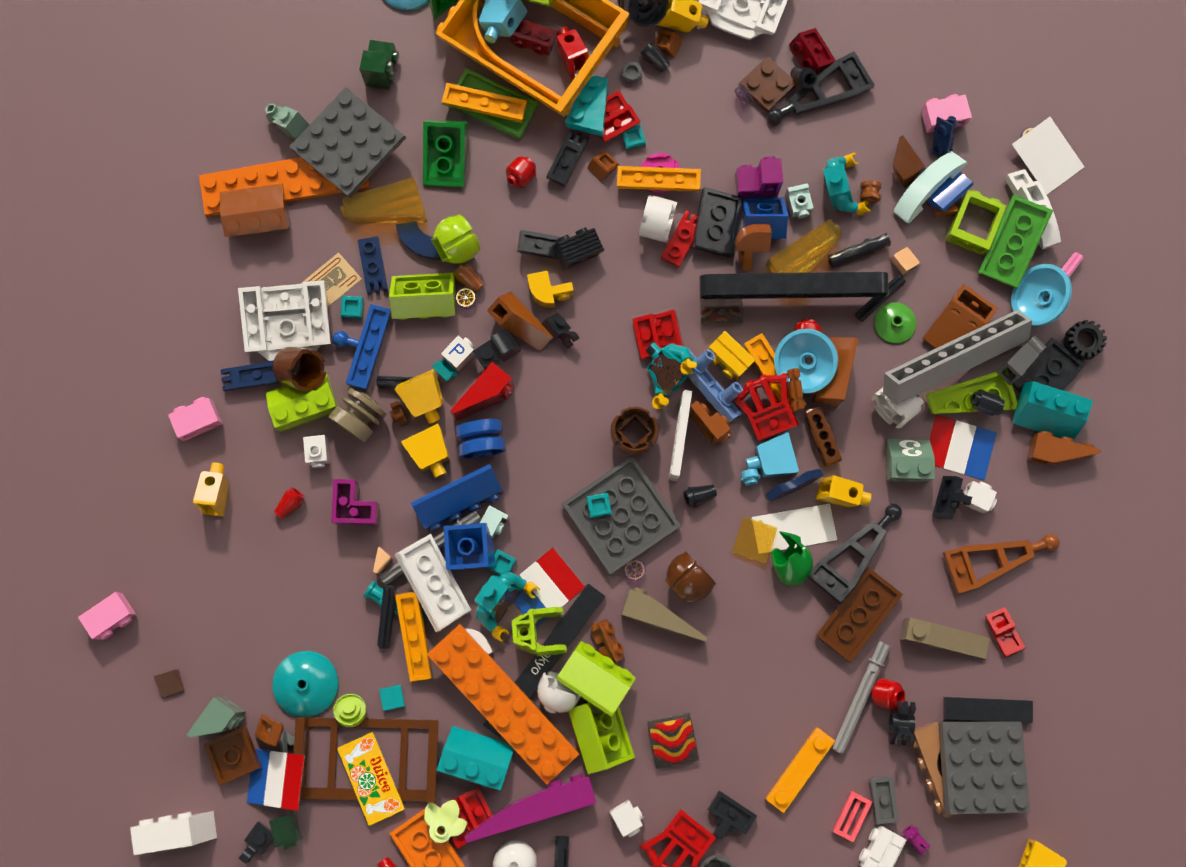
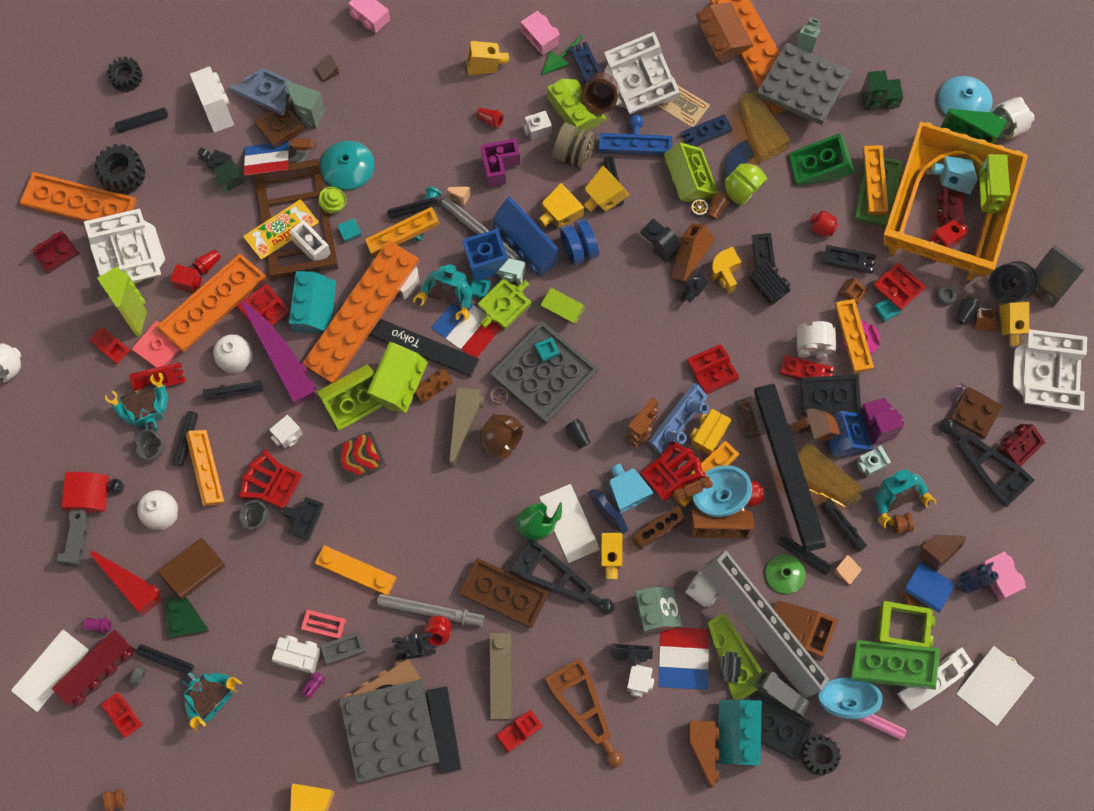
camera: 80 degrees right, 10 degrees down
(180, 763) = (265, 89): none -> sand blue wing
(235, 411) = (556, 62): none -> green piece
(352, 307) = (666, 124): teal tile -> none
(397, 414) = (584, 177): reddish brown plate -> none
(402, 747) = (309, 241): none -> white brick
(433, 583) = (446, 234): white tile -> none
(445, 370) = (632, 205): teal tile -> none
(446, 818) = (259, 289): yellowish green plate -> none
(458, 352) = (648, 210): white brick -> none
(485, 392) = (621, 236): red slope -> none
(527, 624) = (432, 316): lime piece -> none
(529, 539) = (504, 303): none -> lime plate
(549, 476) = (563, 305): none -> lime hinge
(555, 695) = (375, 349): white cylinder -> none
(590, 106) = (901, 264): teal wing -> none
(644, 419) = (623, 352): reddish brown piece -> none
(668, 370) = (681, 381): torso -> none
(680, 435) = (623, 401): white tile -> none
(750, 477) = (605, 472): medium azure plate -> none
(754, 540) = (550, 489): clear yellow piece -> none
(804, 76) = (990, 442): black cone -> none
(926, 184) = (928, 570): light aqua slope -> none

